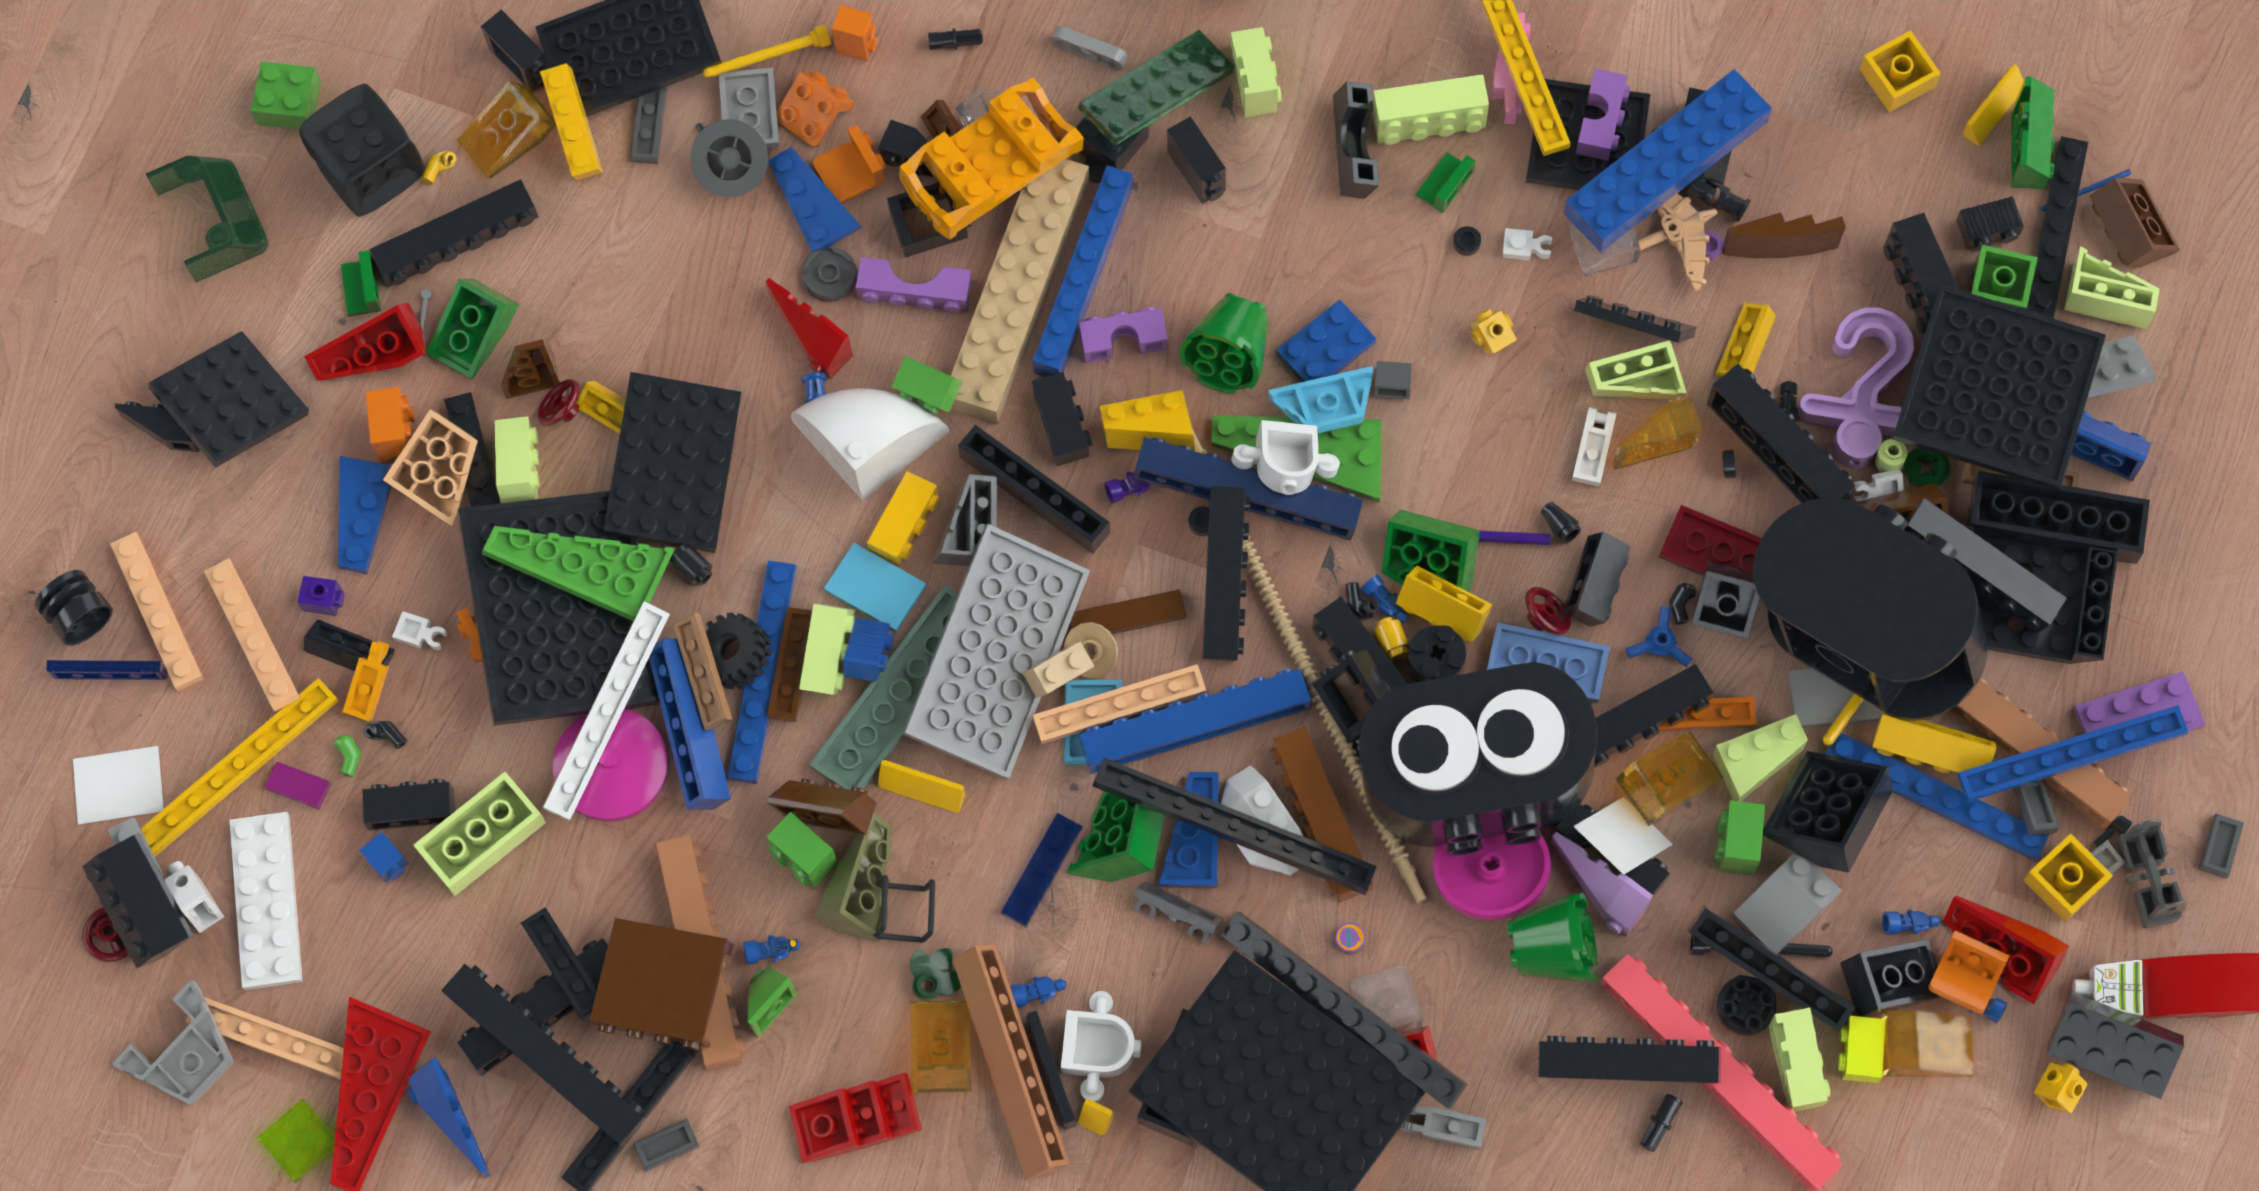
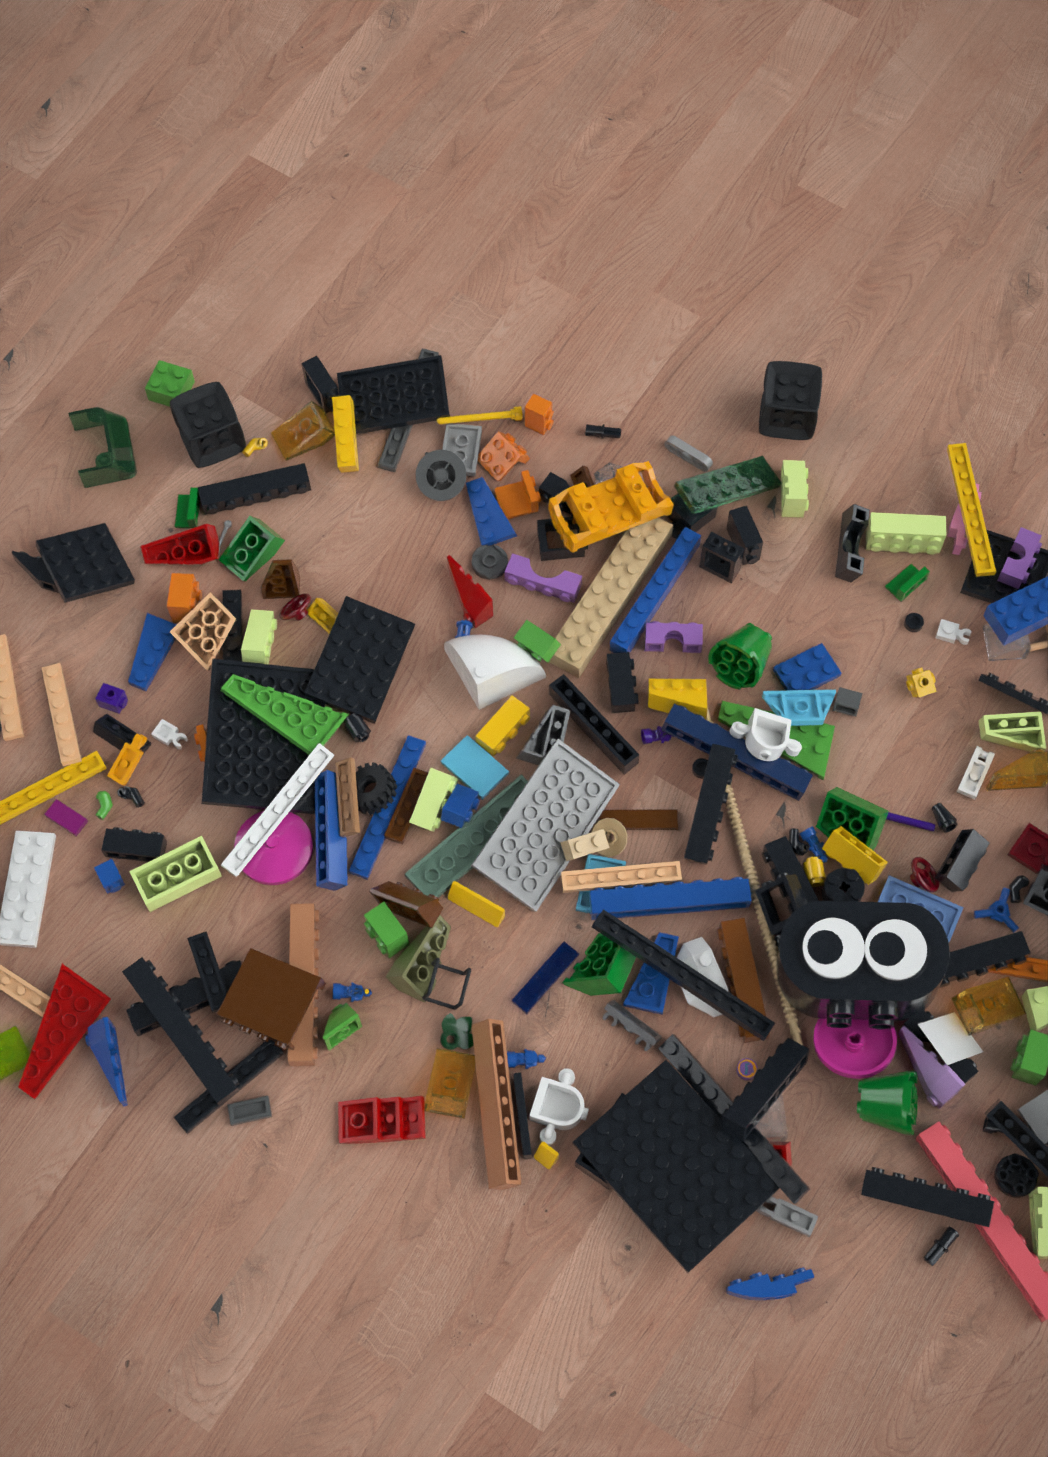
camera: 10 degrees right, 5 degrees down
(1157, 196) = (721, 559): none -> black window
(1379, 961) = (764, 1089): none -> black brick

